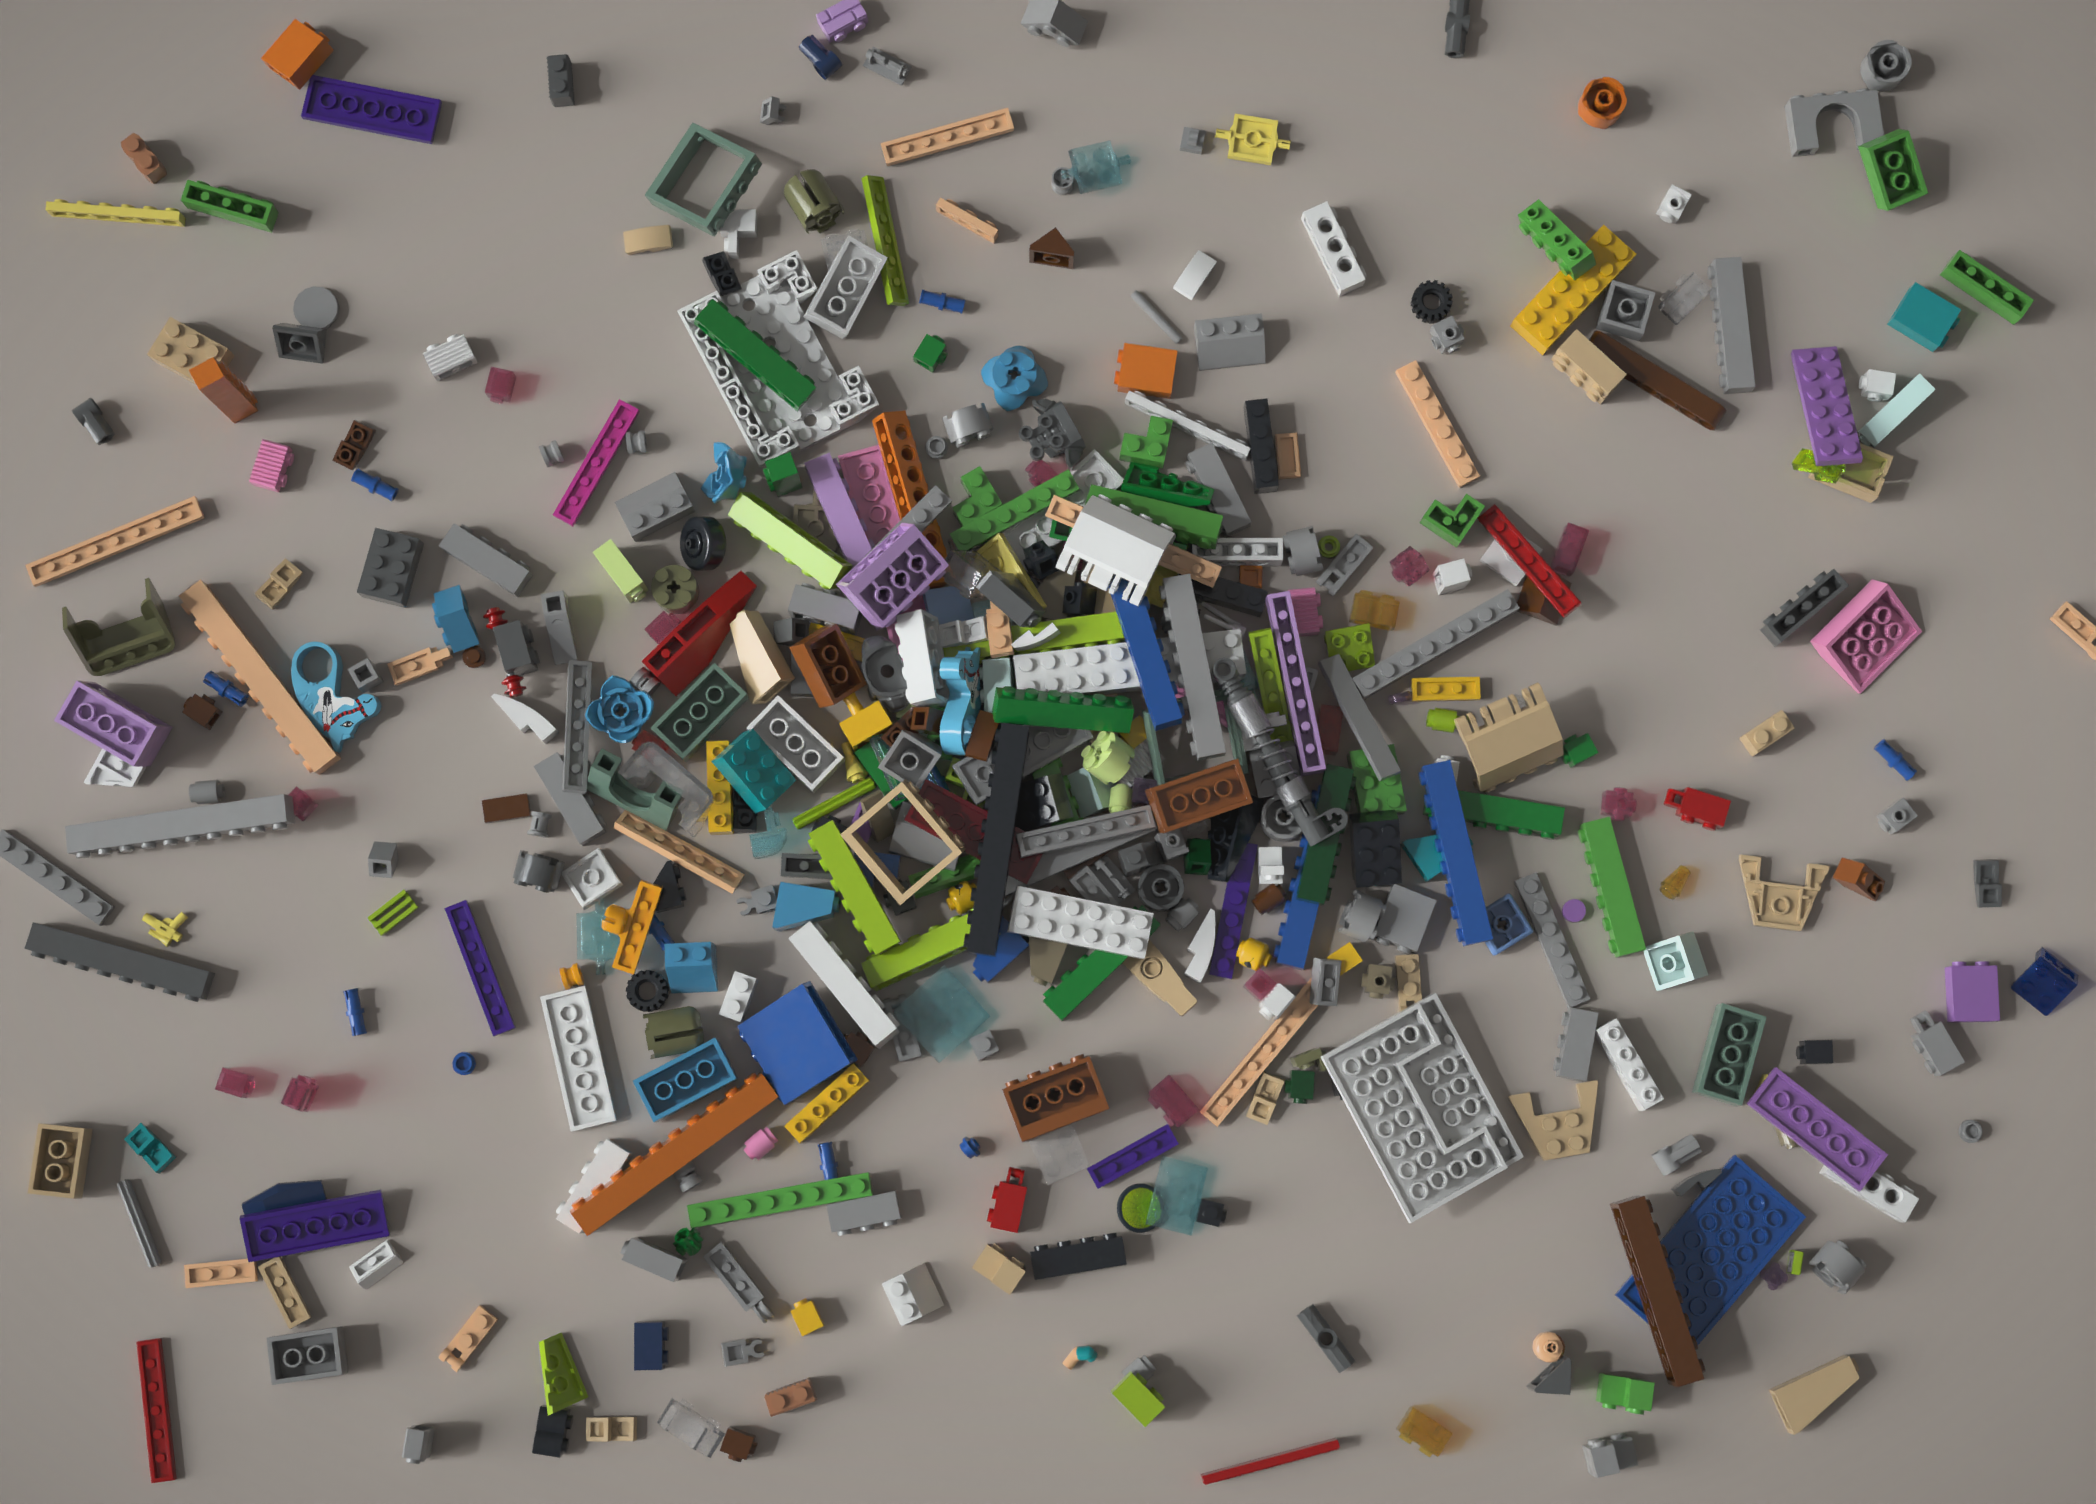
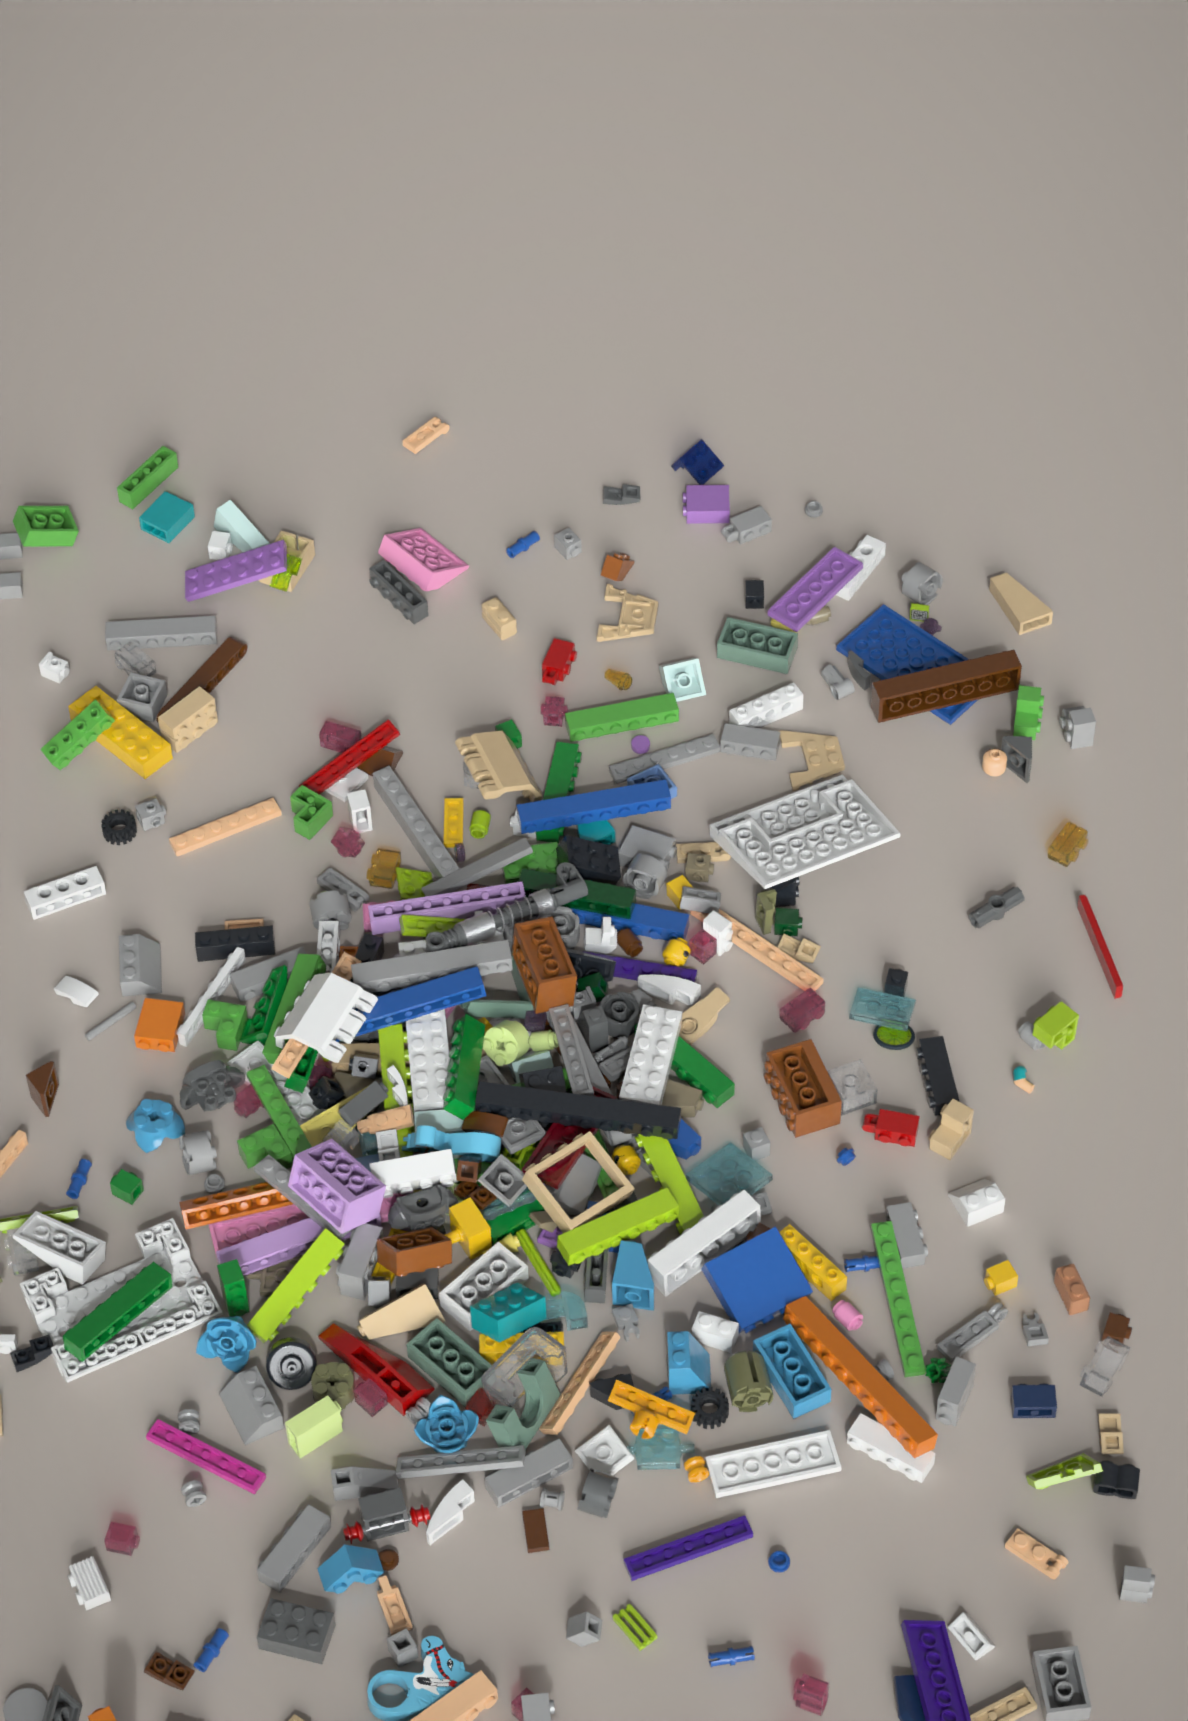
camera: 85 degrees left, 30 degrees down
(1132, 1156) = (849, 1038): dark purple plate -> none

